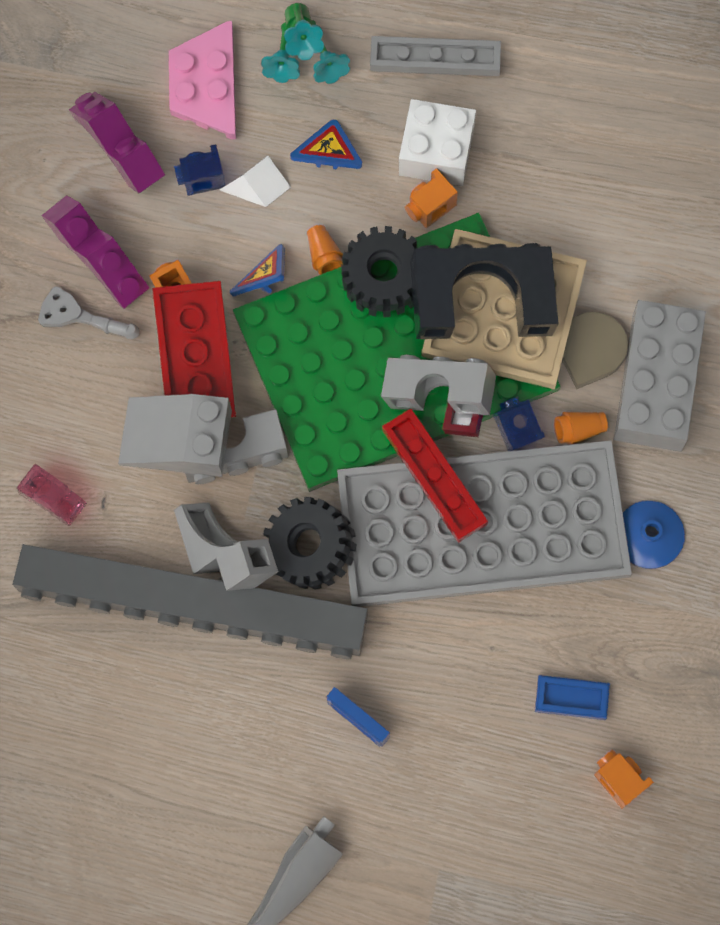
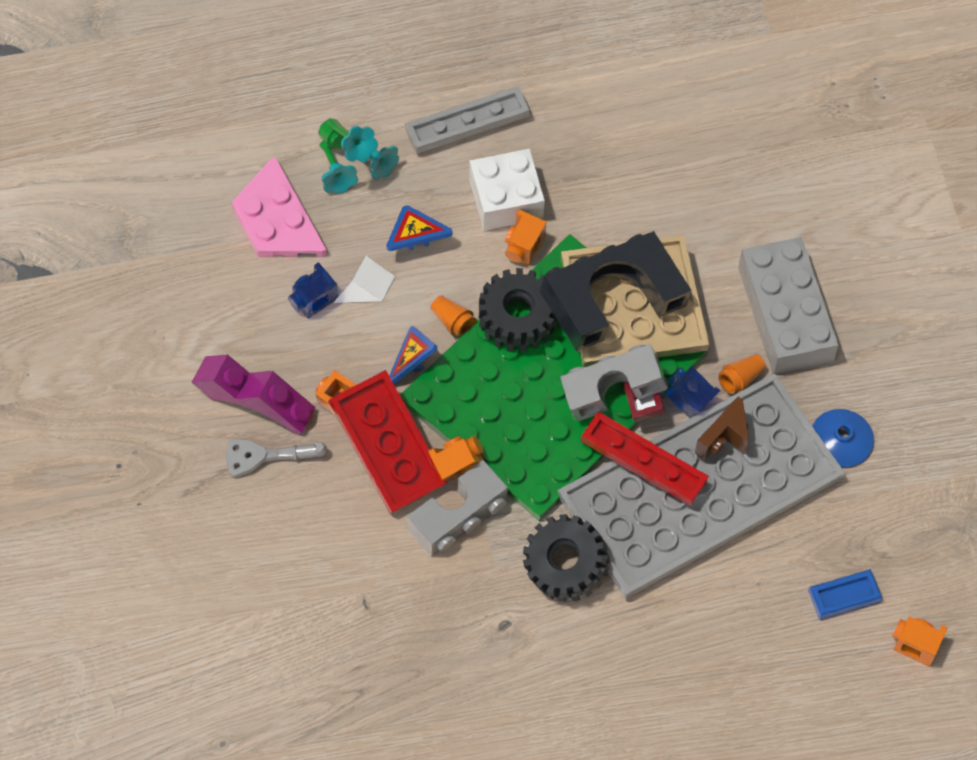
camera: 30 degrees left, 10 degrees down
(51, 495) = (320, 613): clear pink leg -> none
(115, 137) = (215, 284): magenta arch -> none
(176, 433) = (410, 511): light grey slope -> none
(190, 600) = (486, 650): dark grey brick -> none
(213, 550) = (485, 599): light grey arch -> none
(253, 395) = (457, 457): none -> orange brick
(357, 717) = (677, 684): blue tile -> none
(534, 476) = (727, 427): none -> reddish brown slope
(594, 348) = (723, 306): dark tan tile -> none

